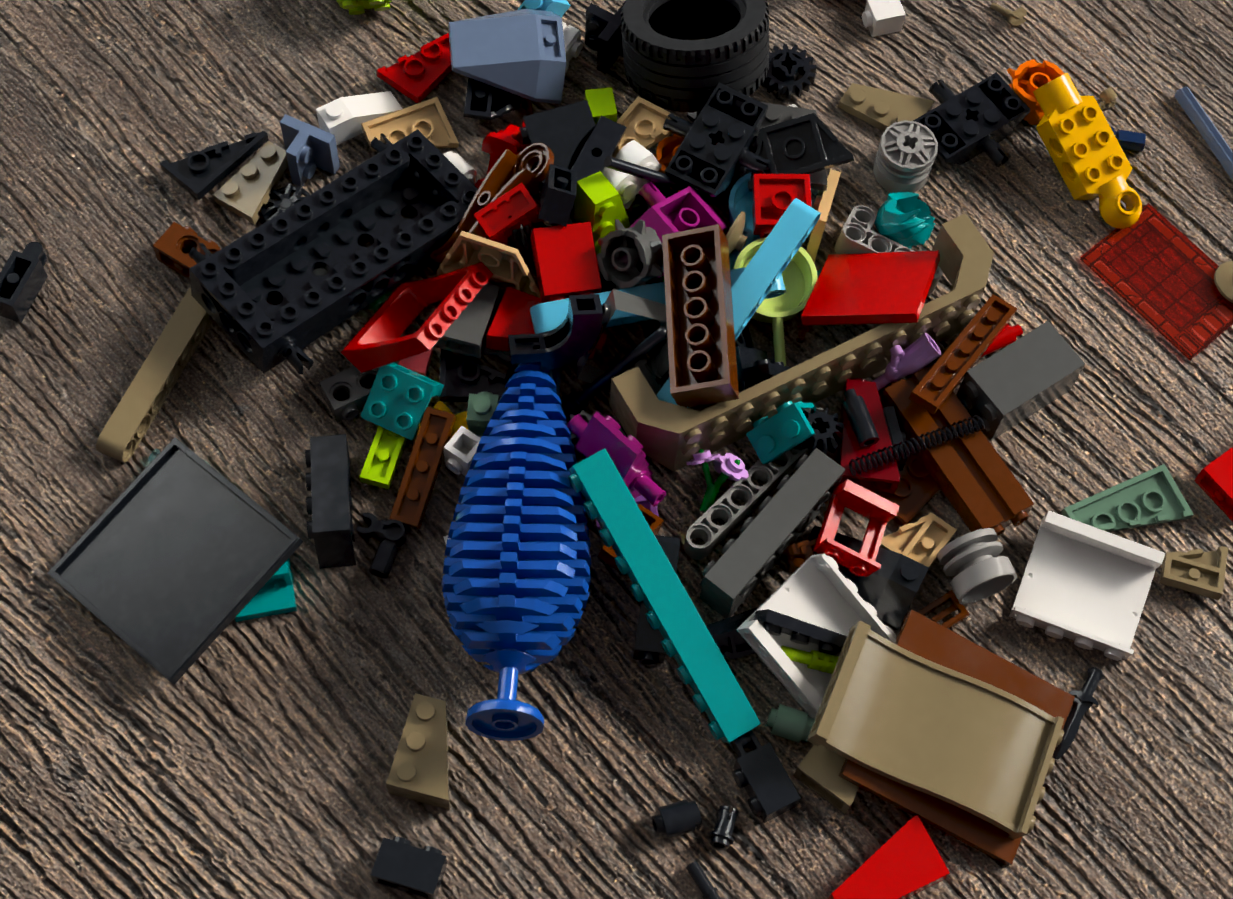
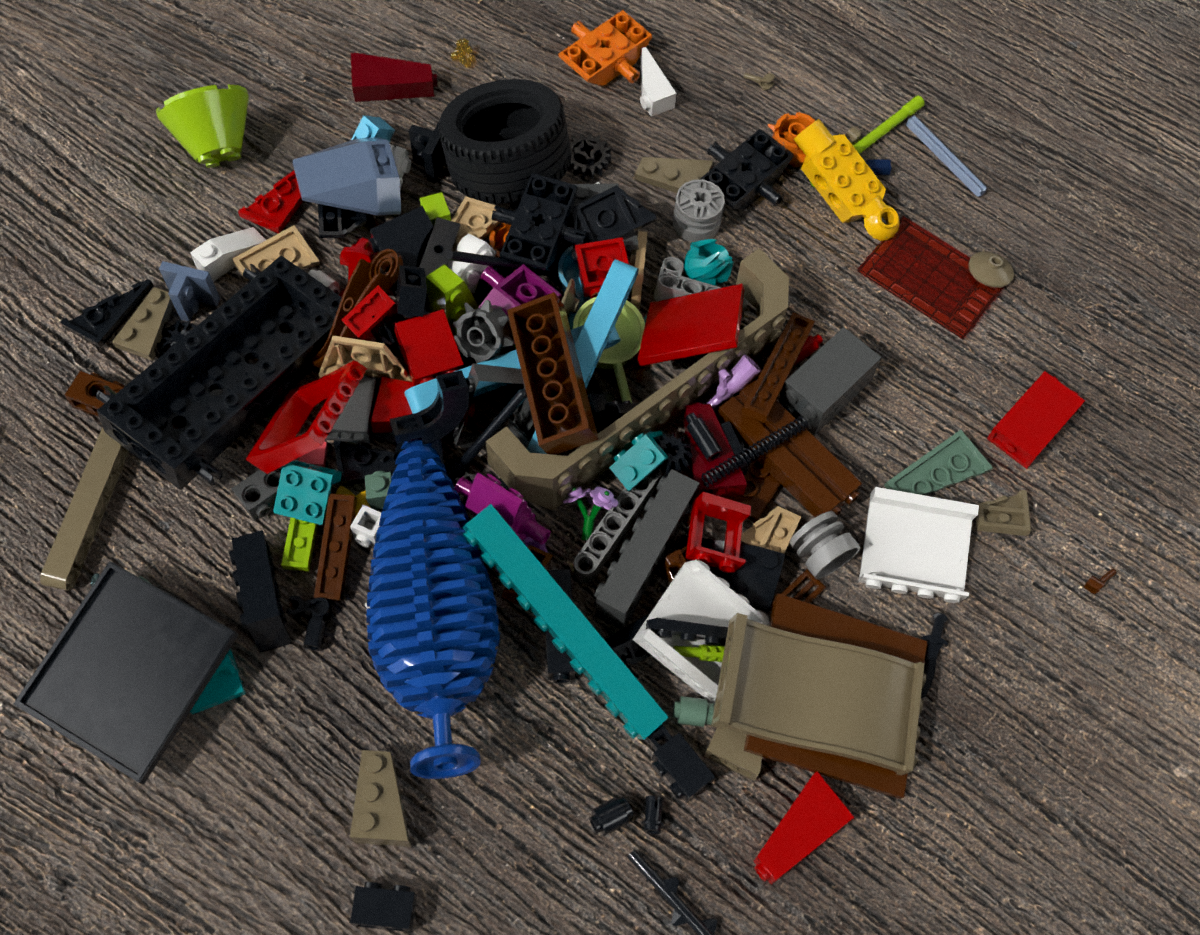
camera: 10 degrees left, 0 degrees up
(1178, 79) = (906, 111): none -> lime piece

